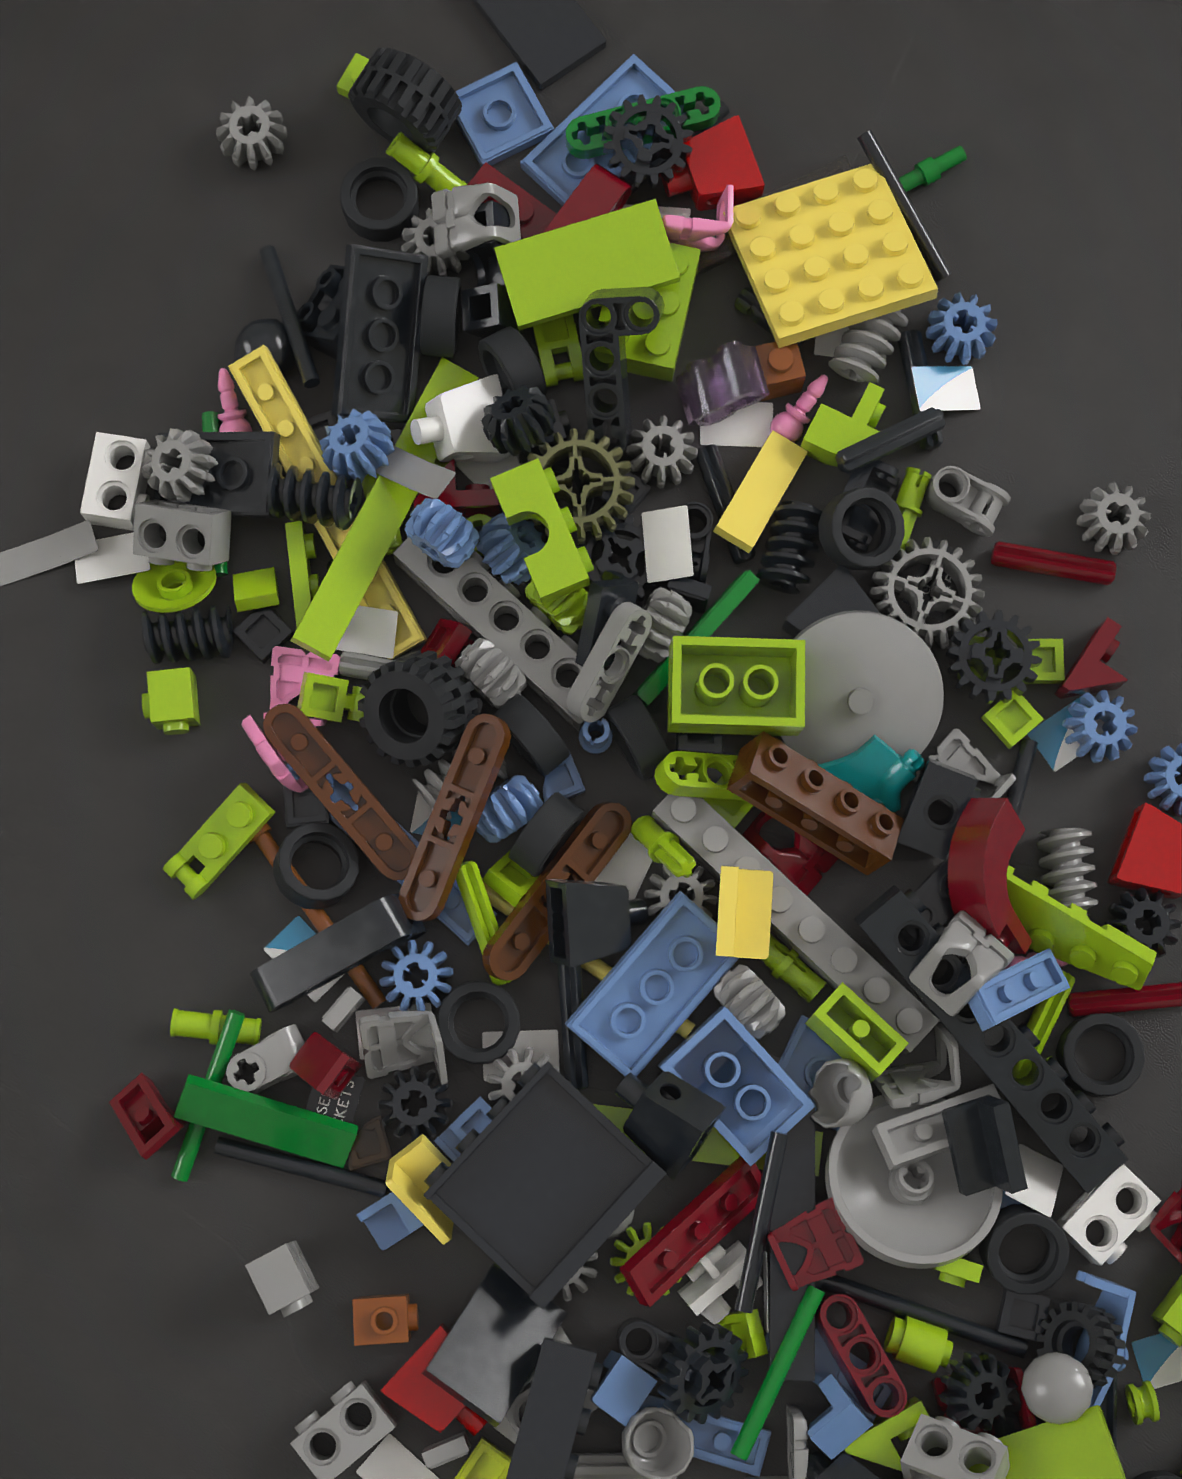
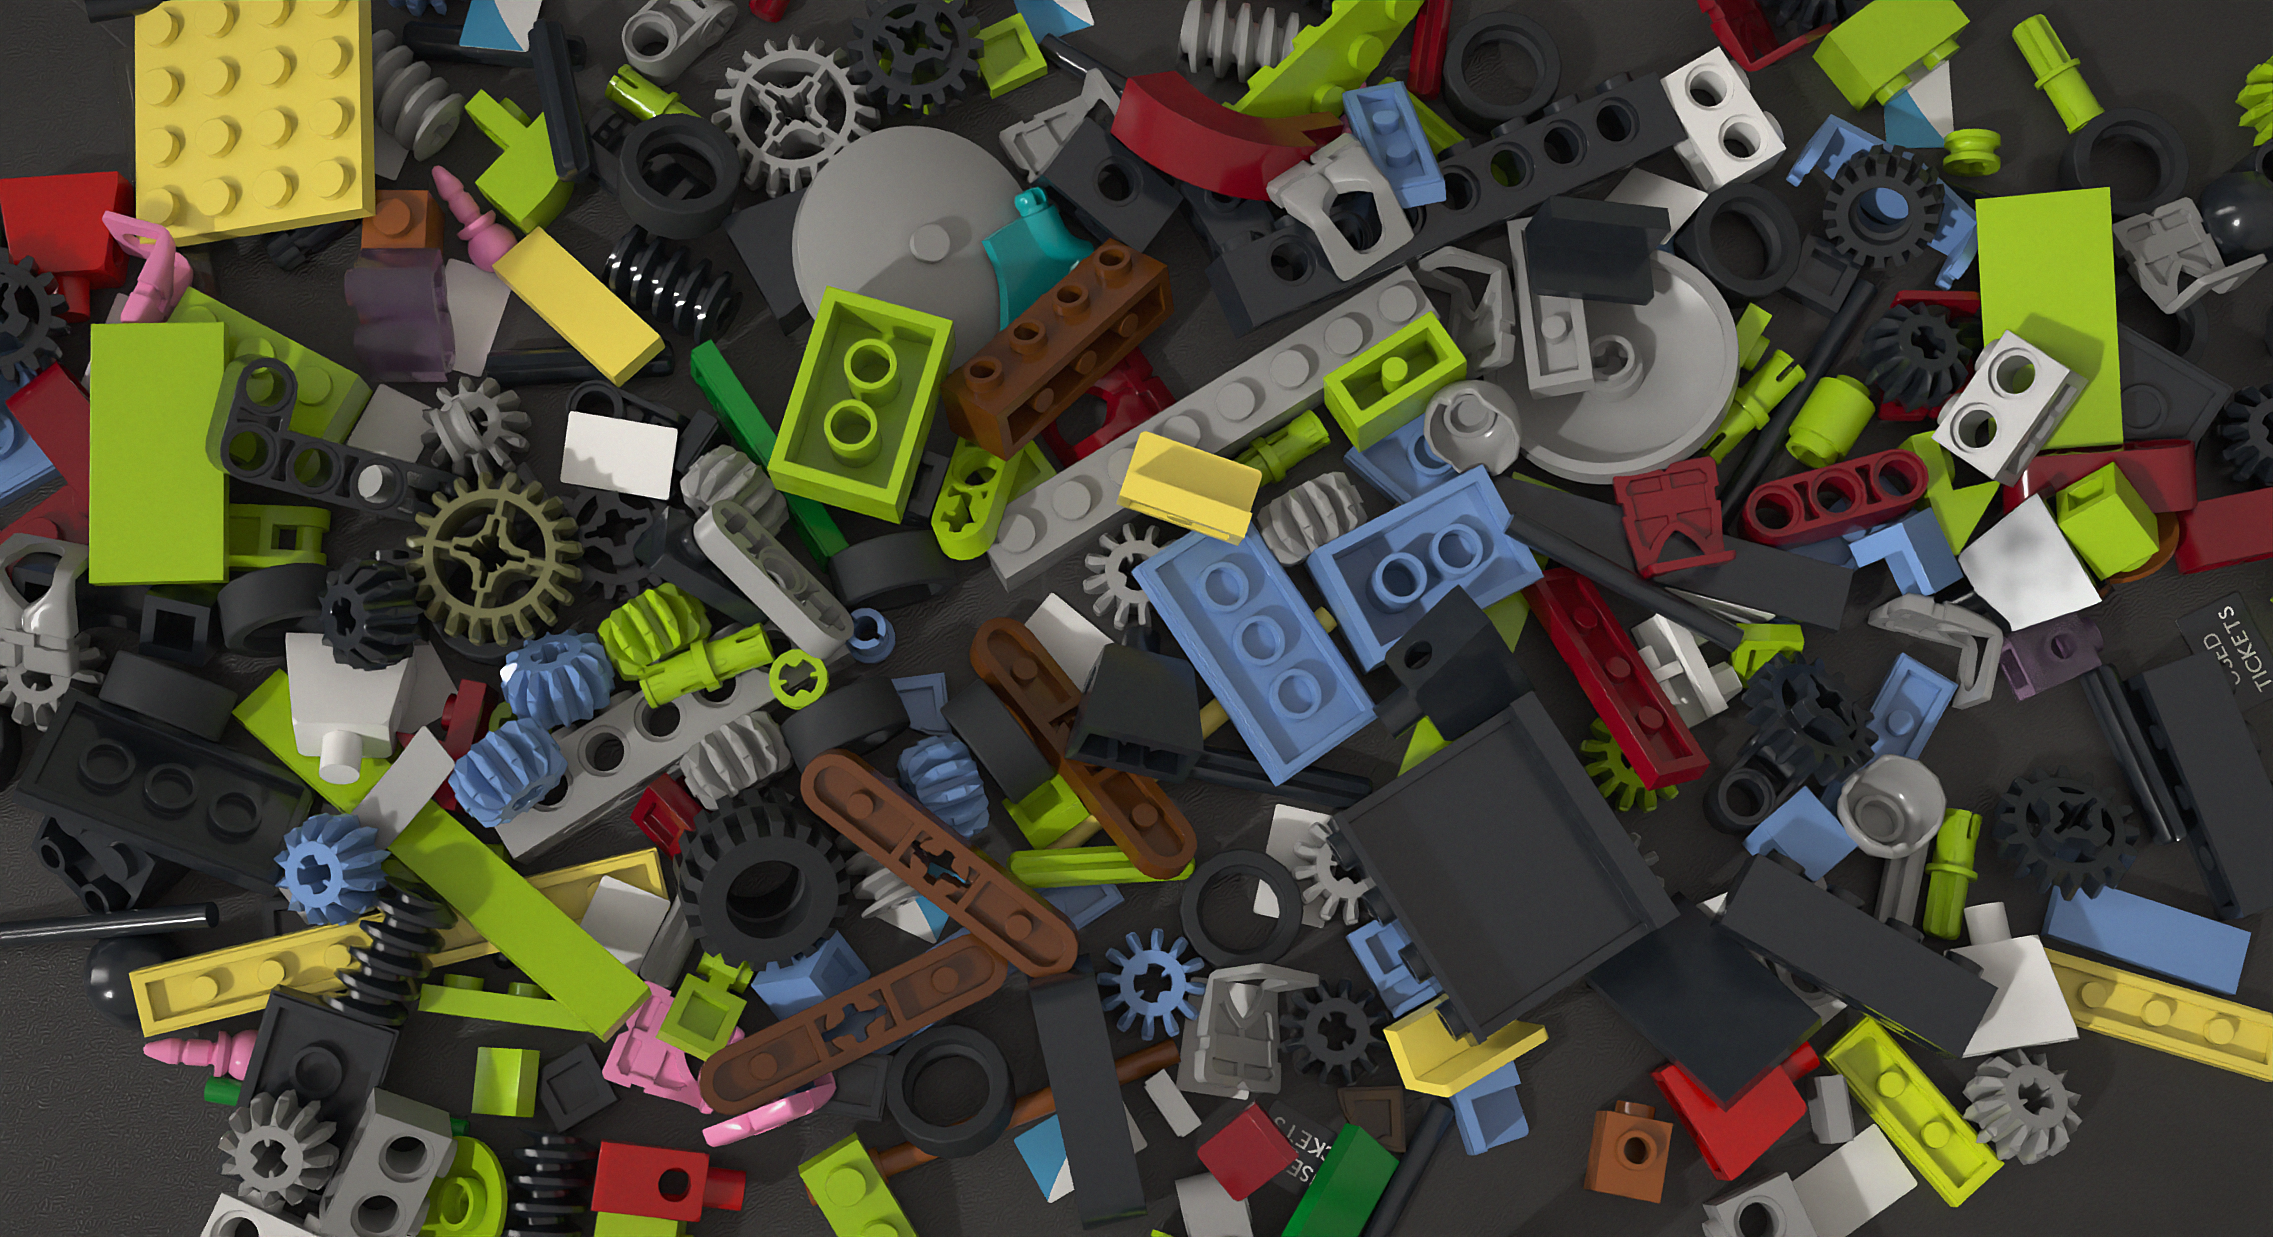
camera: 75 degrees left, 0 degrees up
(207, 682) = (630, 1178): none -> red torso
(365, 761) = (811, 979): none -> medium blue panel
(529, 494) = (491, 621): lime arch -> none
(539, 702) = (795, 659): none -> lime bush
(544, 636) = (706, 665): none -> lime pin
(647, 399) = (391, 428): none -> white sticker
(653, 439) = (457, 430): none -> light grey bush
(663, 846) = (1060, 579): lime axle -> none
(777, 1373) = (1833, 616): green bar -> none
(914, 1285) = (1754, 403): none -> lime pin
(1057, 1388) = (1940, 247): light grey hair -> none

